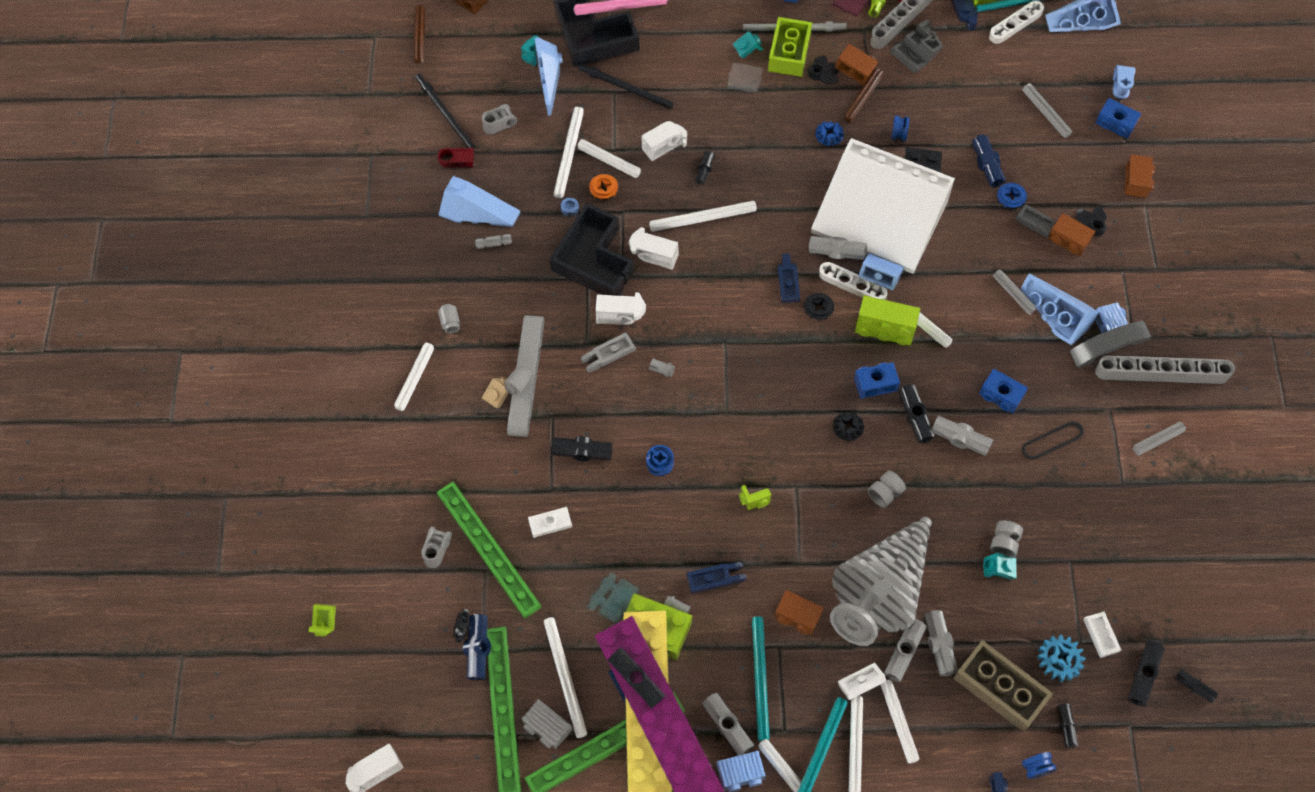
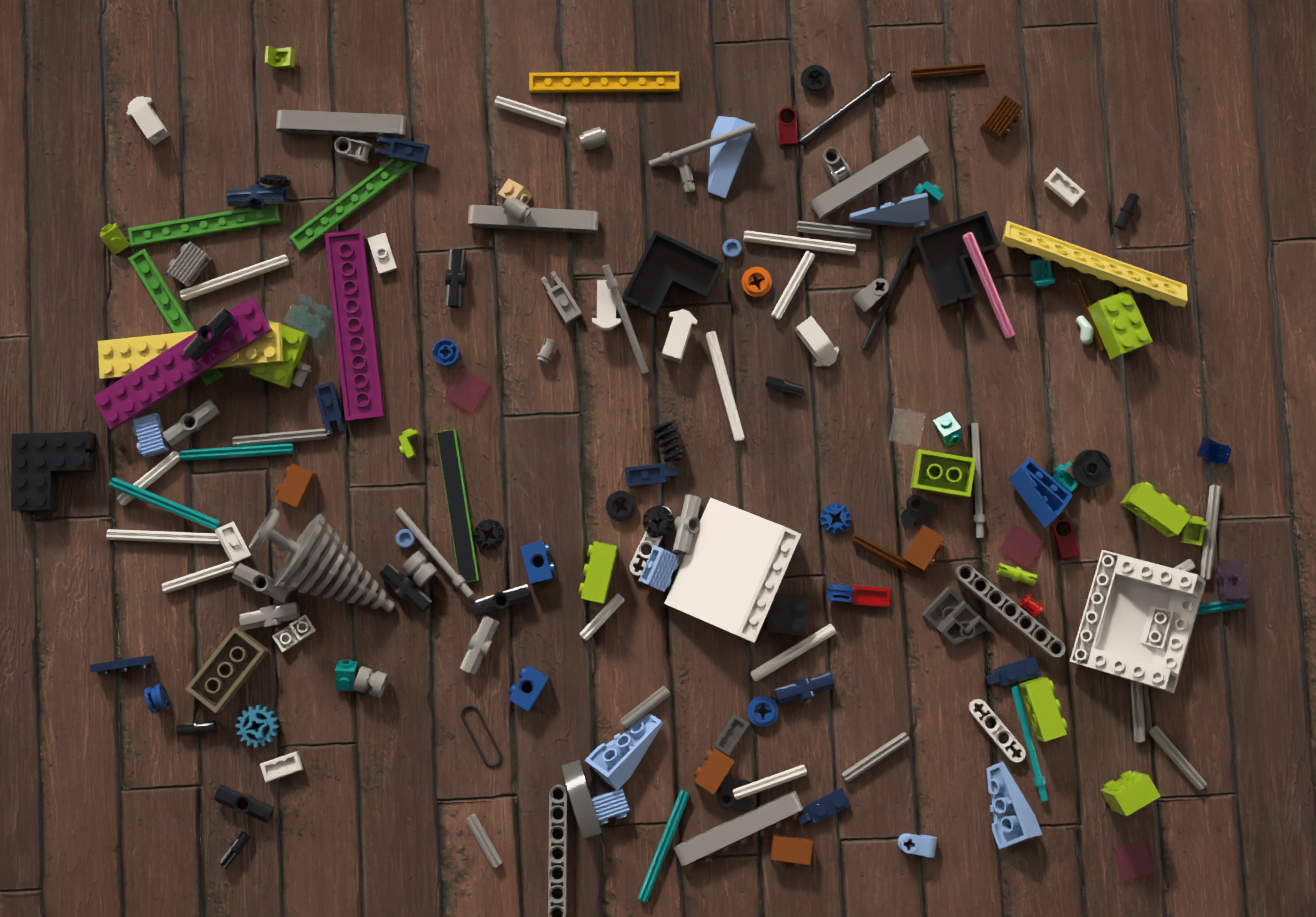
camera: 90 degrees right, 20 degrees up
(391, 311) = (603, 82): none -> yellow tile
(404, 560) = (341, 123): none -> light grey beam
(413, 127) = (814, 71): none -> black gear
(442, 492) = (404, 150): none -> dark blue hinge
(475, 253) = (668, 157): none -> light grey bar
(512, 94) = (869, 177): none -> light grey beam
(558, 125) = (833, 230): none -> light grey axle
(602, 294) = (612, 284): none -> light grey bar
(622, 95) = (869, 296): none -> light grey piece
(625, 550) = (354, 325): none -> magenta plate
(699, 444) = (467, 391): none -> clear pink piece
(745, 631) = (281, 437): none -> light grey axle
(756, 259) = (669, 441): none -> black piece
(819, 455) = (457, 505): none -> black tile
(827, 274) = (651, 527): none -> black gear
(853, 506) = (405, 538): none -> medium blue tile
(897, 452) = (457, 579): none -> light grey bar
(900, 106) = (871, 596): none -> red tile
(906, 504) = (405, 588): none -> black piece
(956, 171) = (793, 652): none -> white axle
(958, 621) = (293, 633): none -> white slope
(1078, 191) = (769, 782): none -> white axle
(1096, 151) = (824, 807): none -> dark blue hinge
(1118, 118) = (865, 845): blue brick -> none
(1124, 218) = (738, 828): none -> light grey beam
(1146, 280) = (663, 846): none -> teal axle

